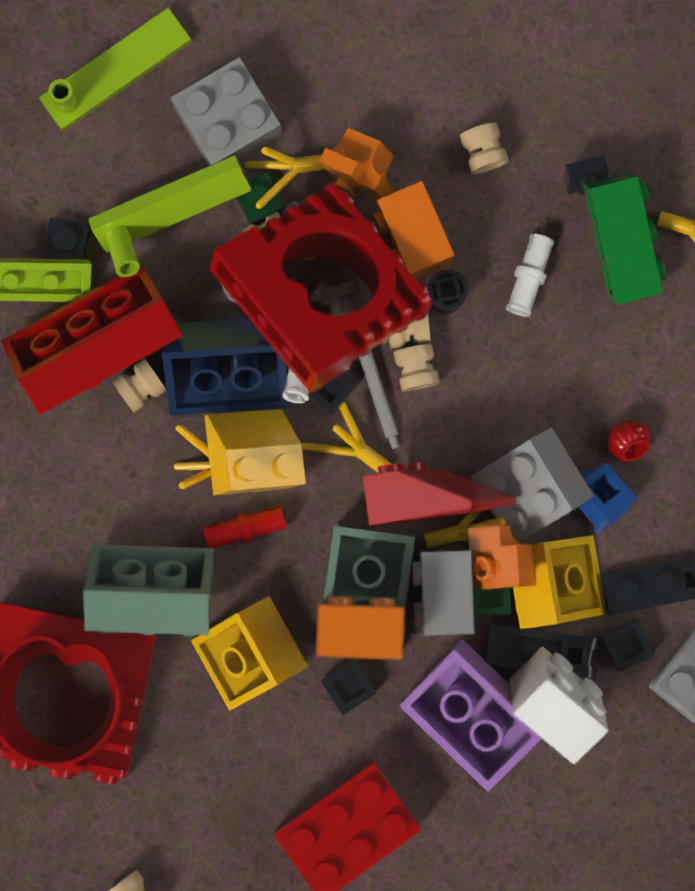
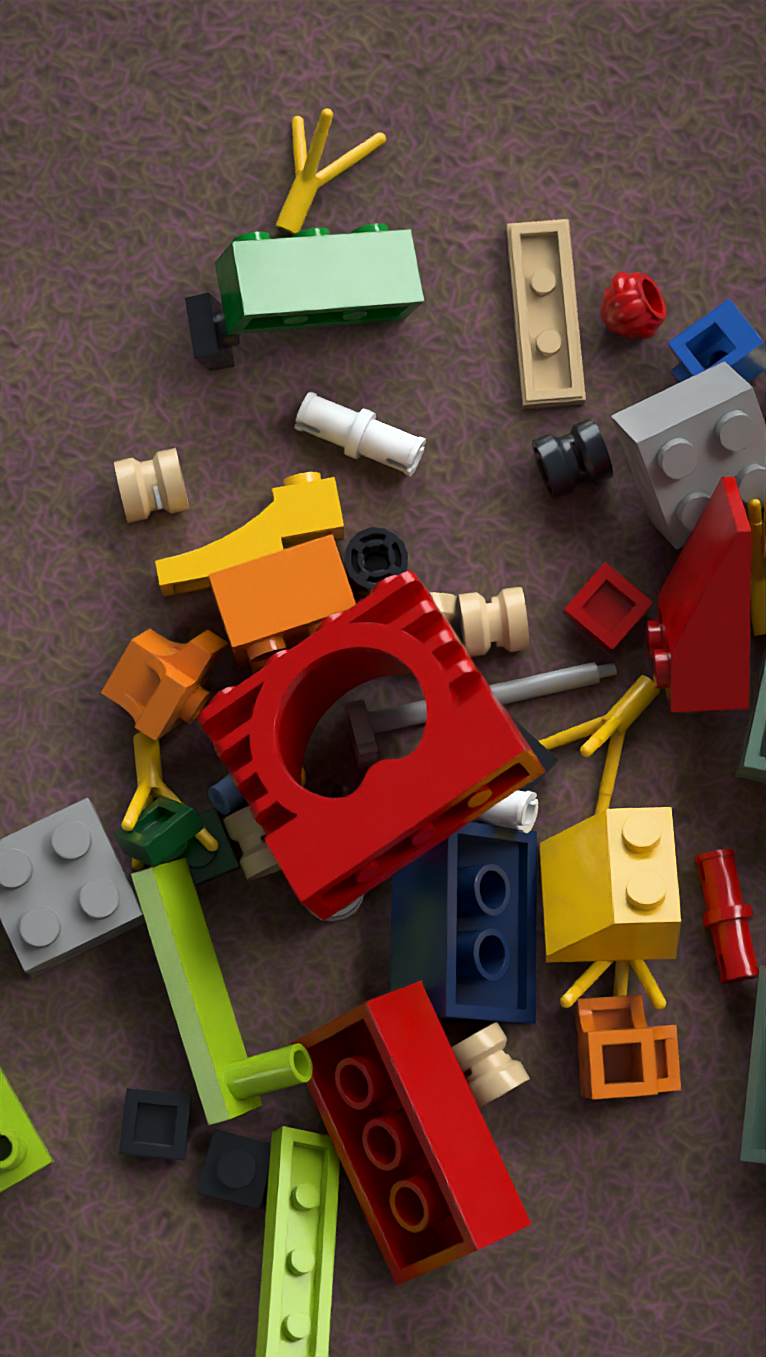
camera: 80 degrees left, 5 degrees down
(88, 189) = (156, 1124): none -> black plate
(153, 467) = (621, 1052): none -> orange brick
(262, 171) = (160, 832): none -> dark green plate
(432, 439) = (608, 607): none -> red plate
(473, 239) = (300, 513): none -> yellow slope
(522, 400) = (561, 463): none -> black wheel
(620, 386) = (545, 314): none -> tan tile

